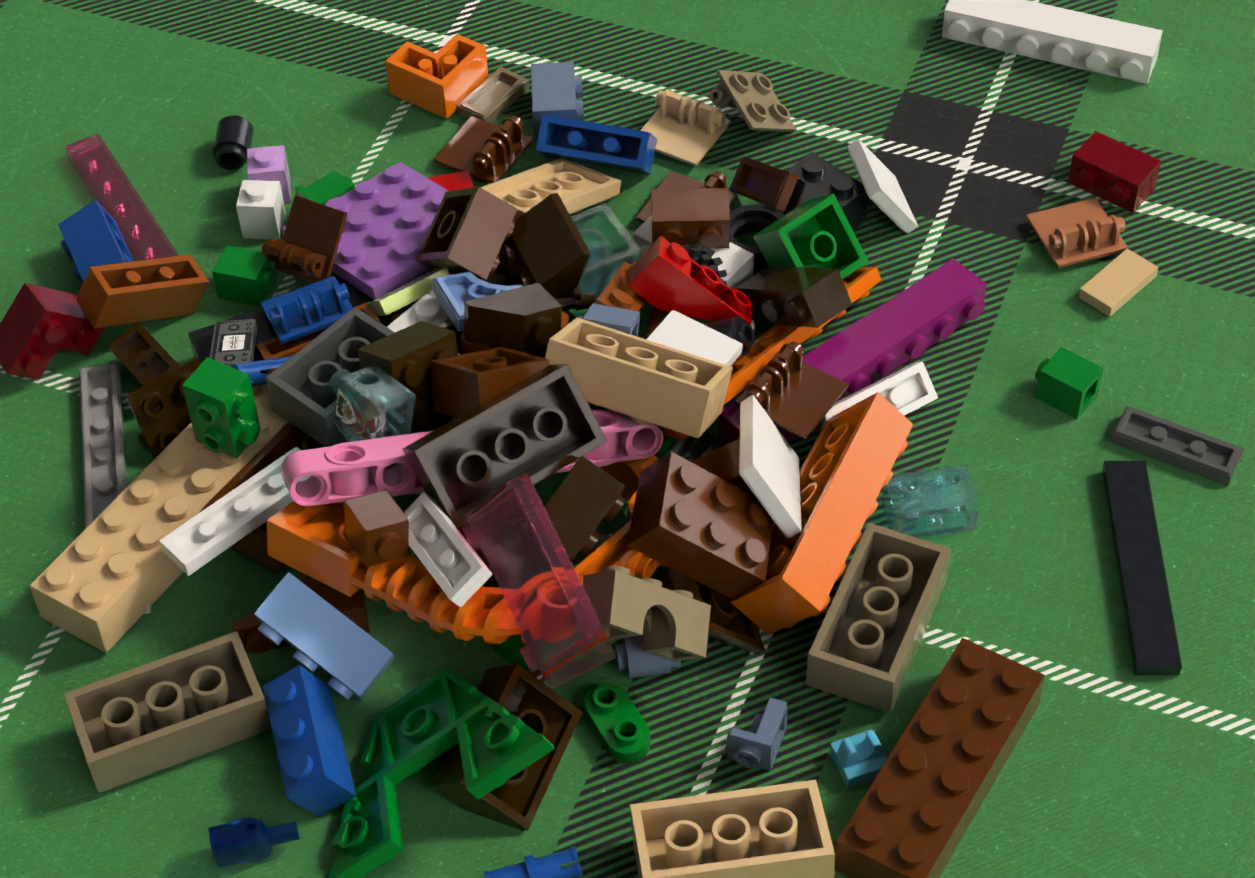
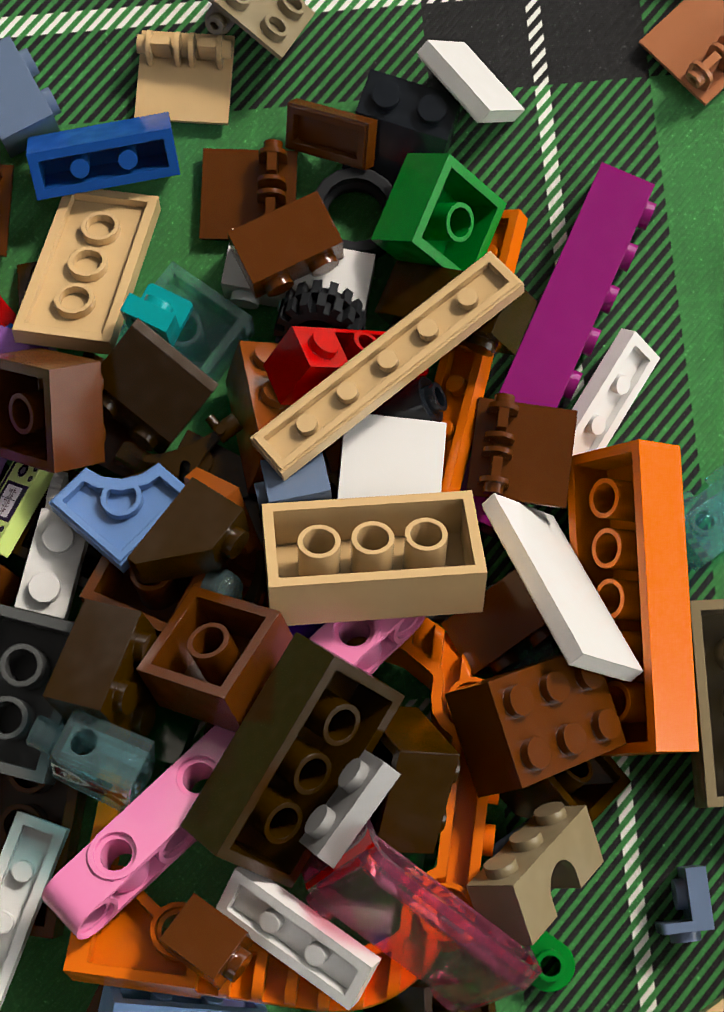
camera: 30 degrees left, 30 degrees up
(542, 467) = (339, 821): none -> light grey plate
(582, 216) = (159, 310): none -> teal bracket
(715, 278) = (387, 365): none -> tan tile

